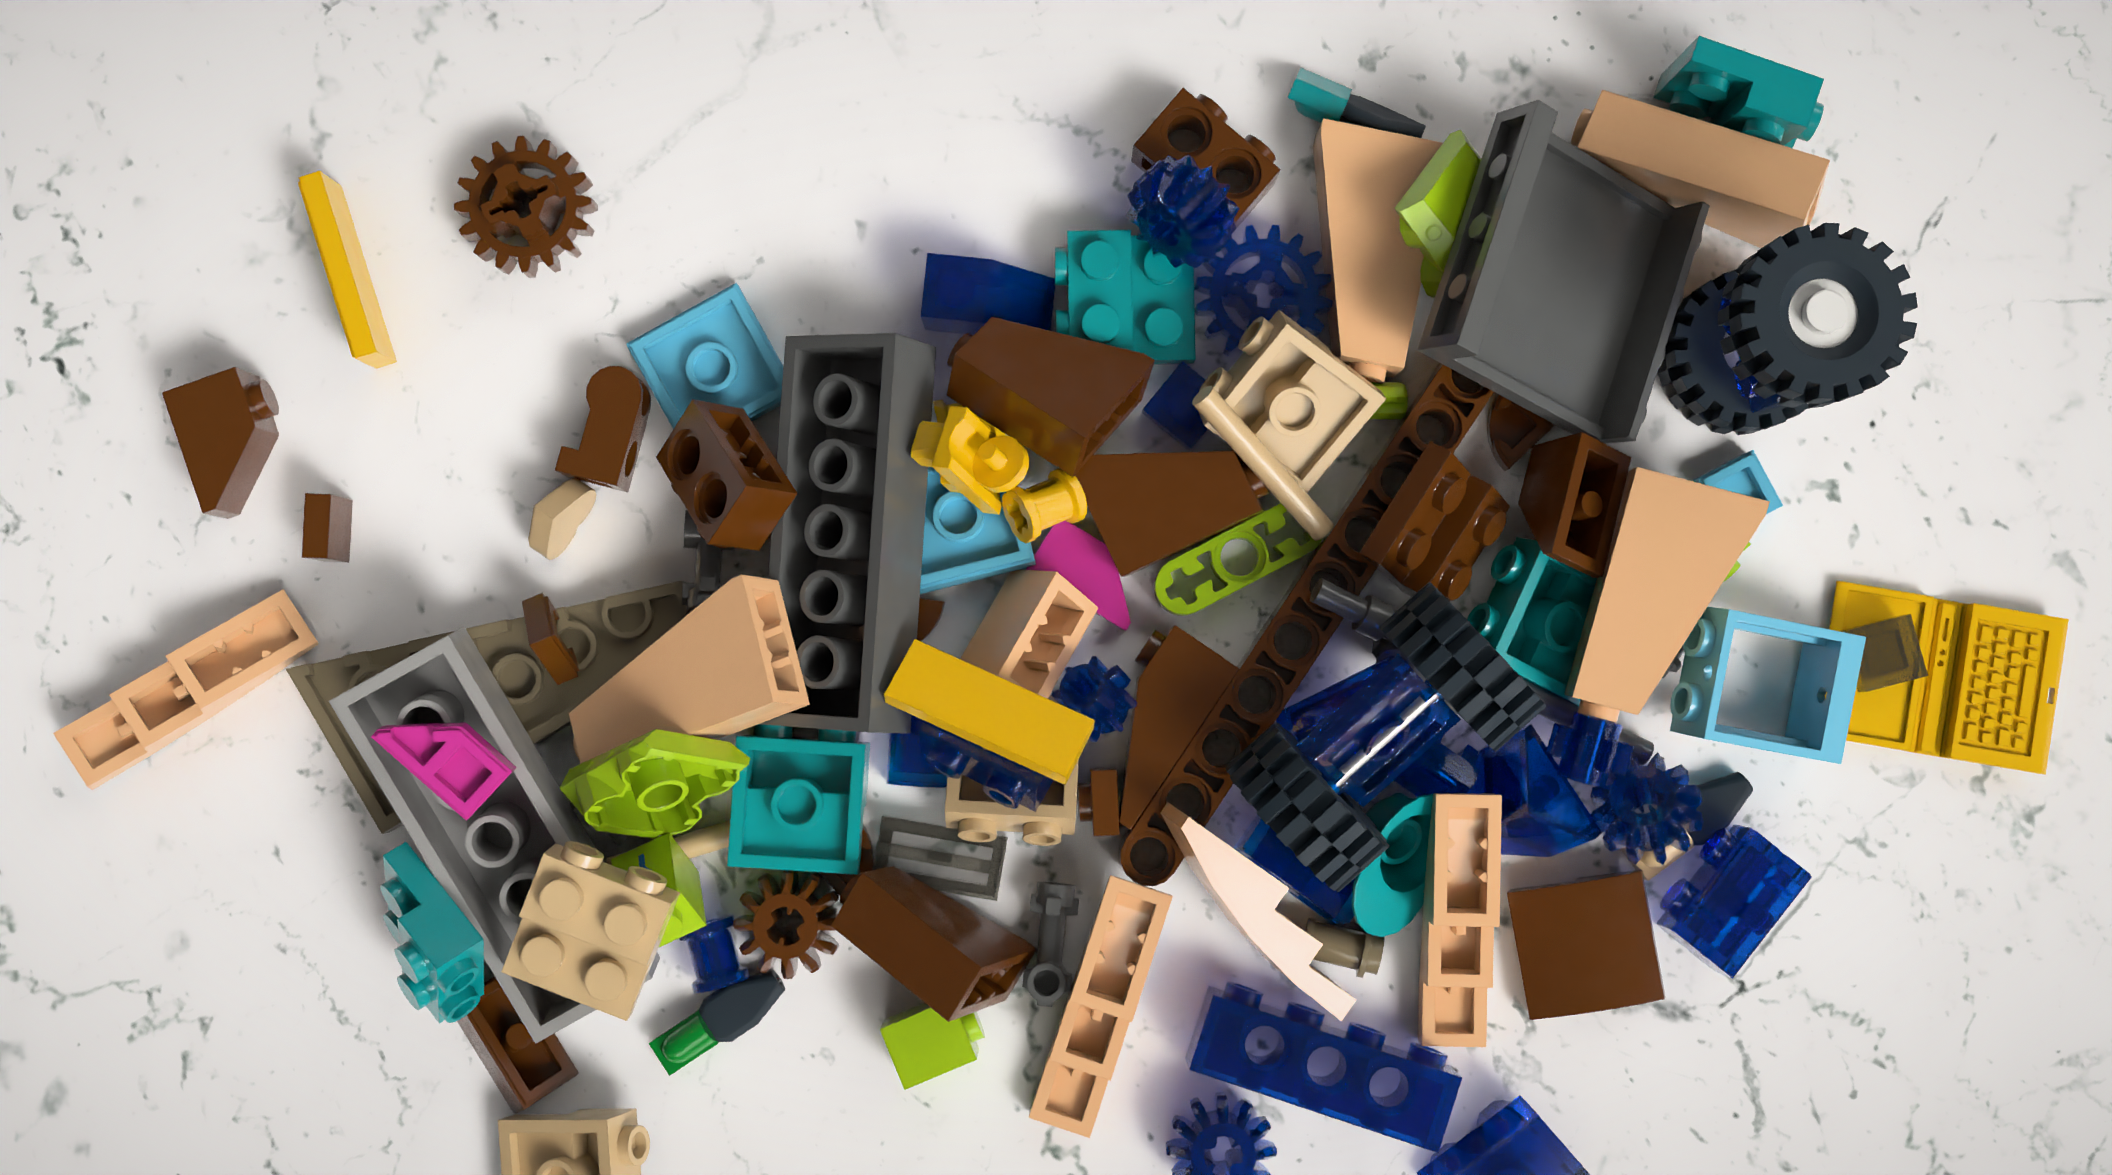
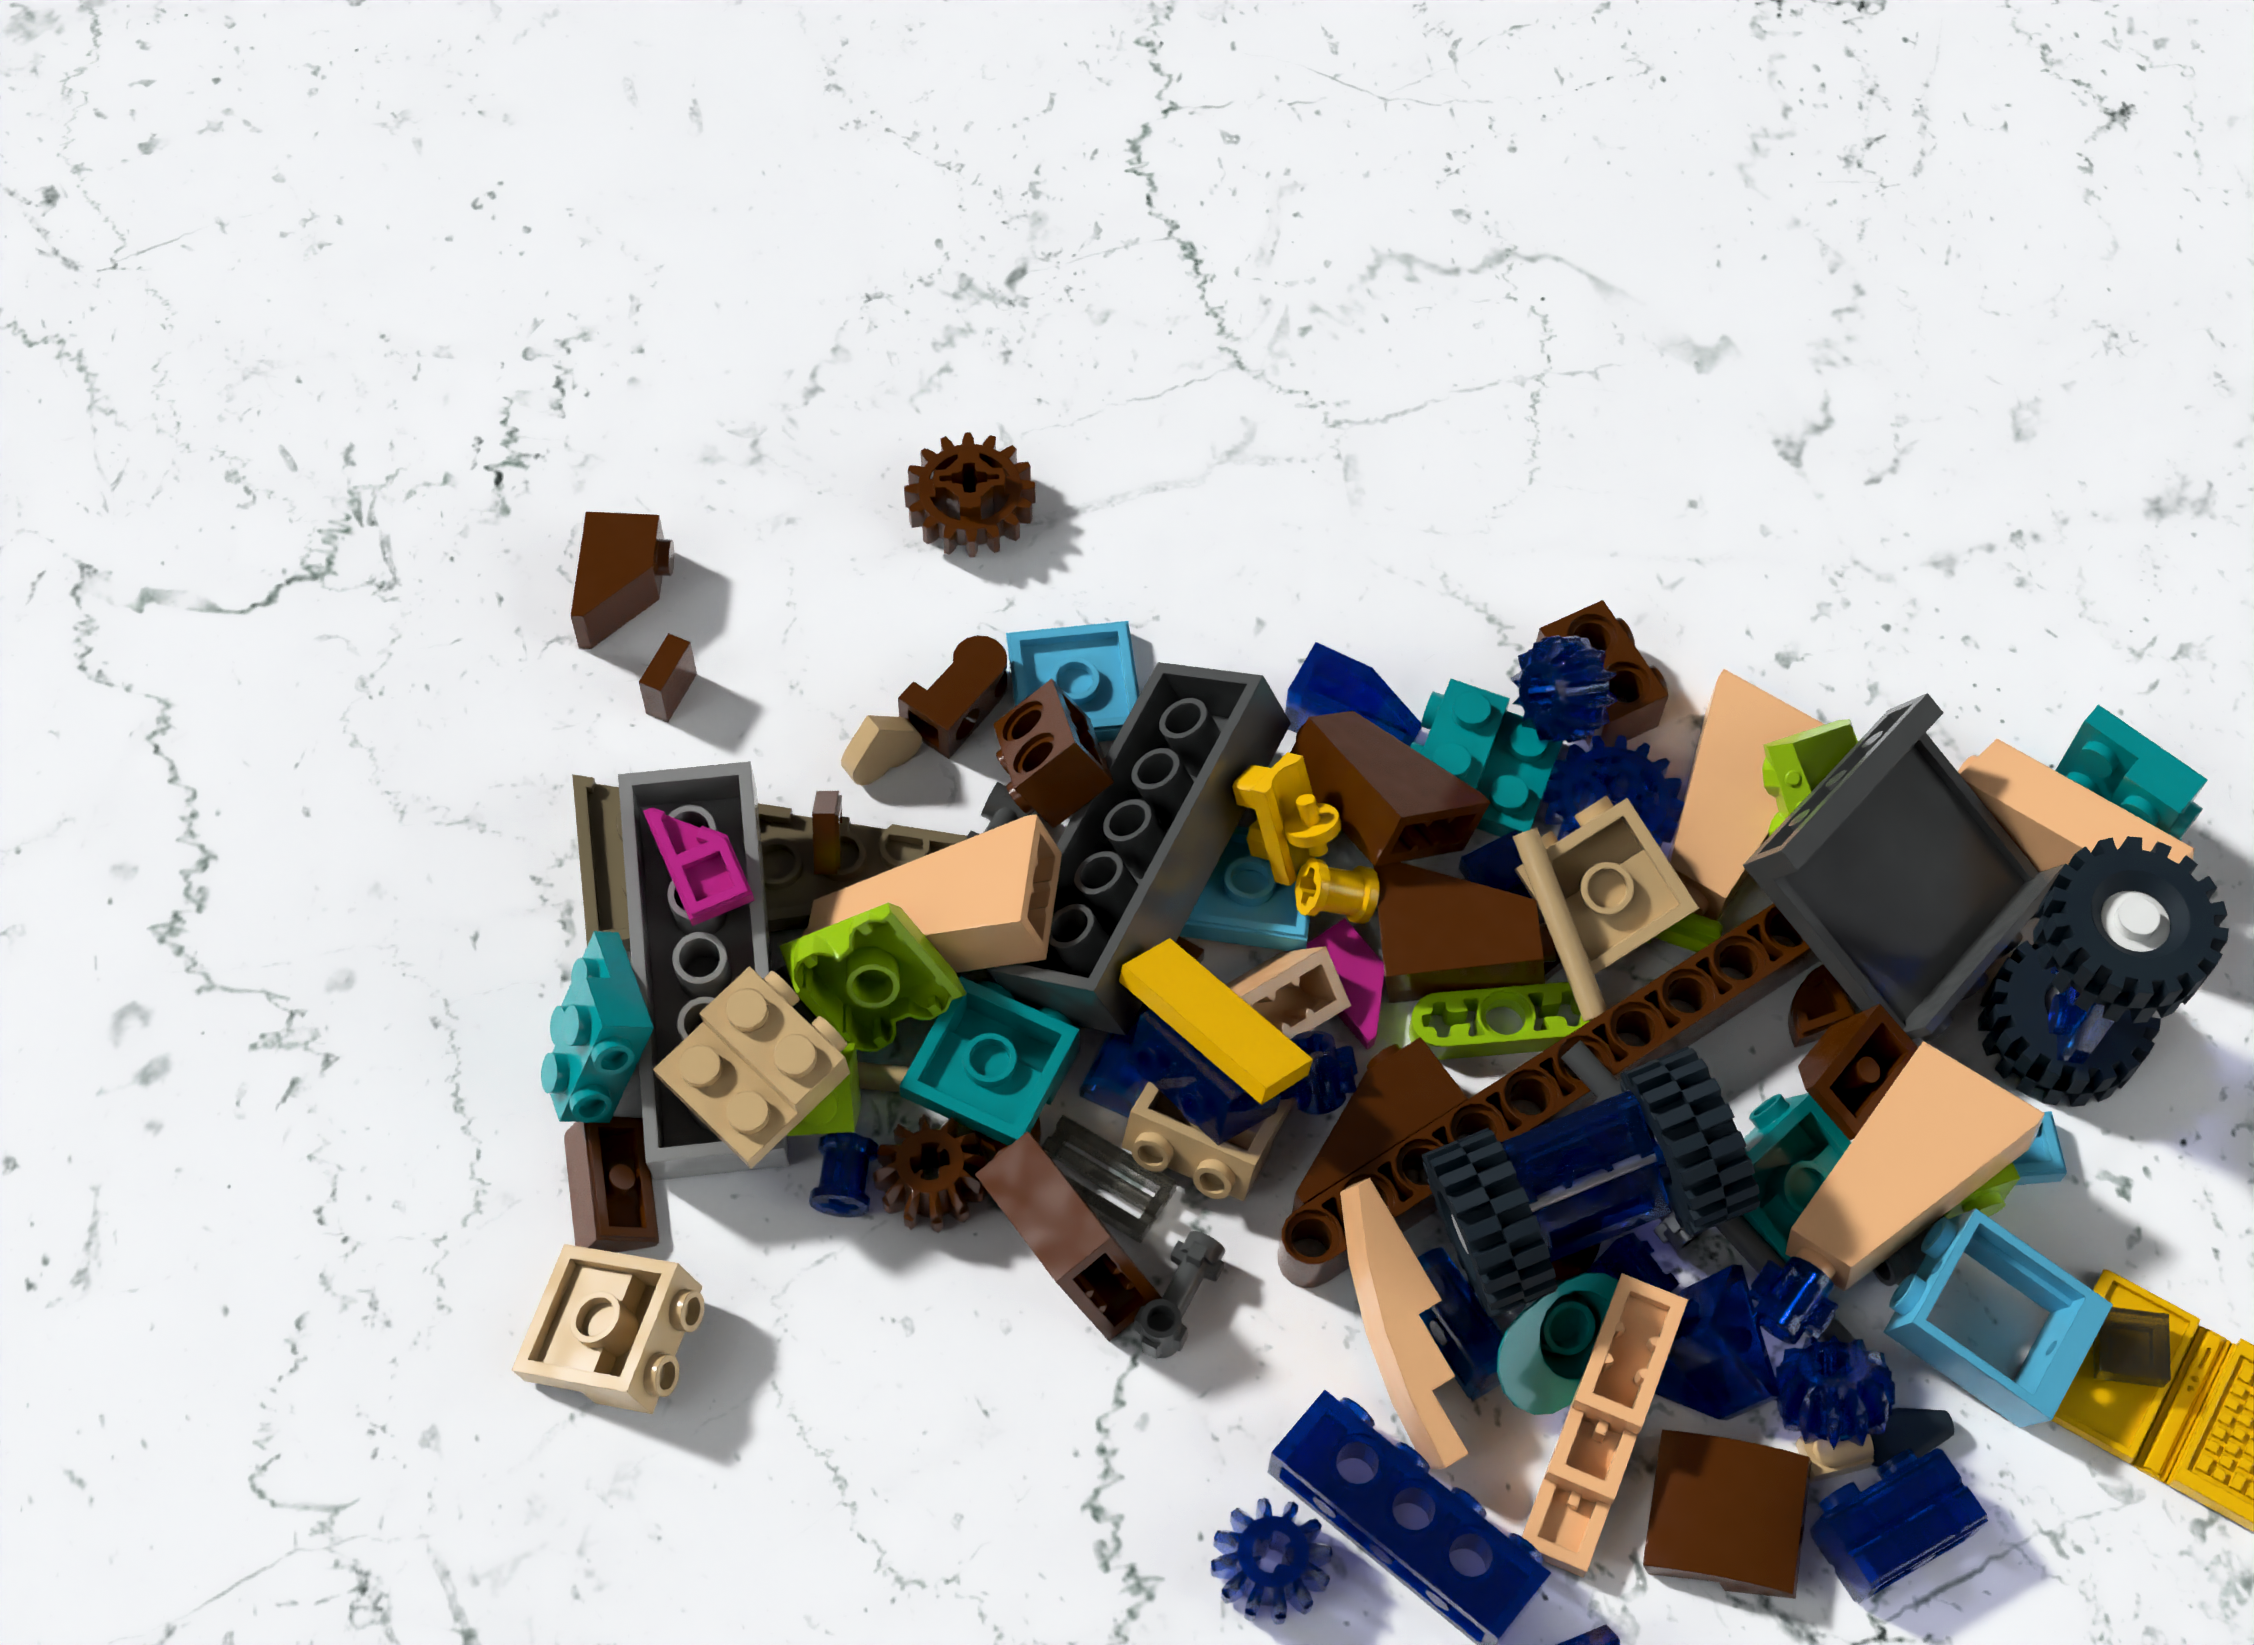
camera: 20 degrees right, 25 degrees down
(186, 689) = (475, 765): light nougat slope -> none
(346, 270) = (789, 488): yellow tile -> none
(720, 1018) = (820, 1244): black piece -> none
(928, 1045) = (1023, 1335): lime brick -> none
(1100, 801) = (1281, 1178): reddish brown plate -> none
(1100, 1005) = (1203, 1367): light nougat slope -> none
(1323, 98) = (1721, 656): piece -> none
(1347, 947) = (1477, 1417): dark tan pin -> none
(1436, 526) = (1721, 1022): reddish brown plate -> none

